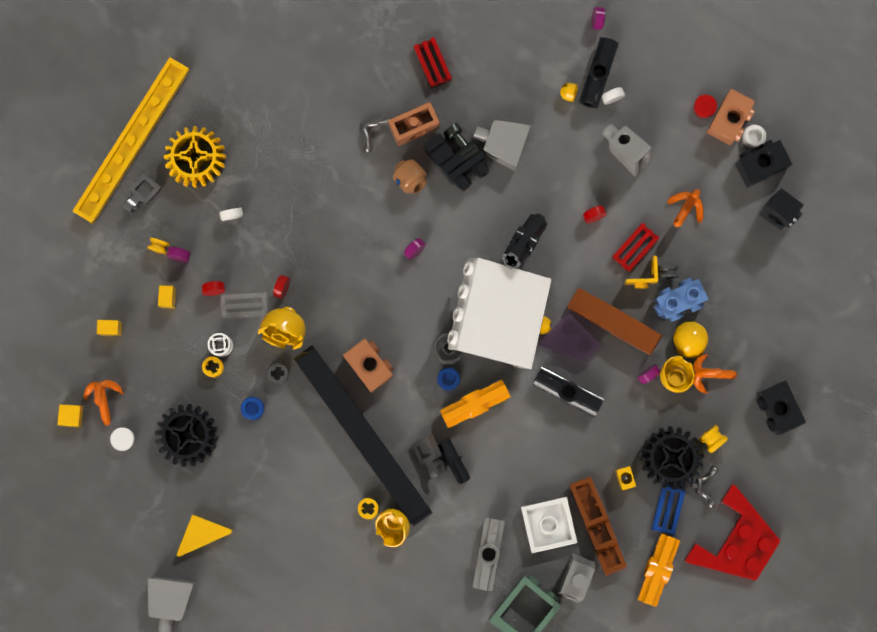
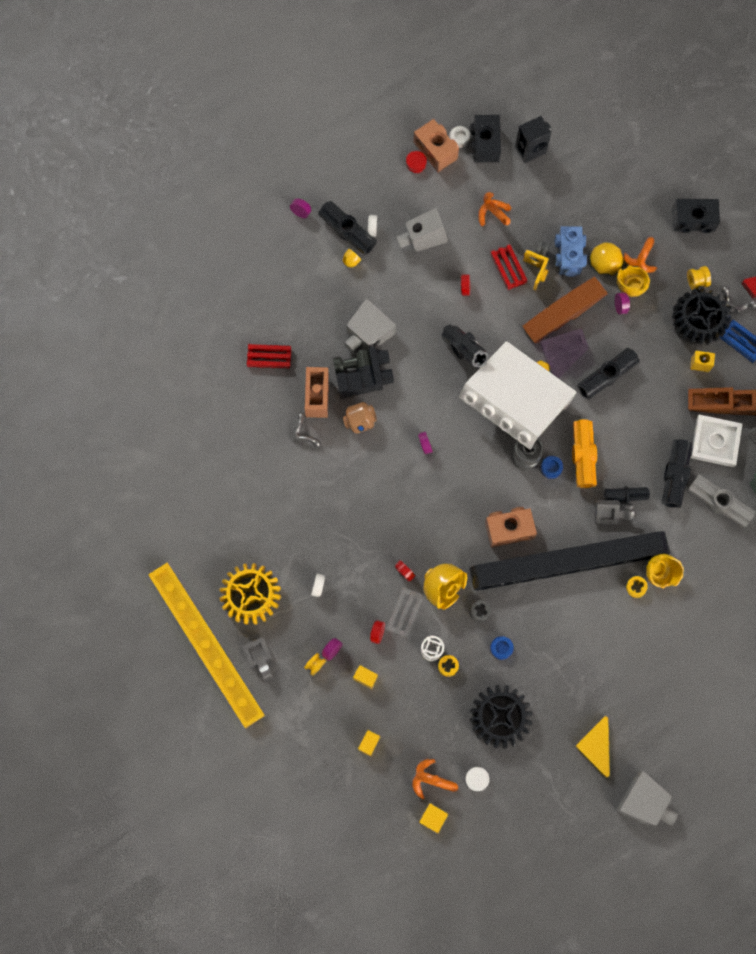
camera: 65 degrees left, 10 degrees down
(497, 500) = (677, 473): none -> black piece

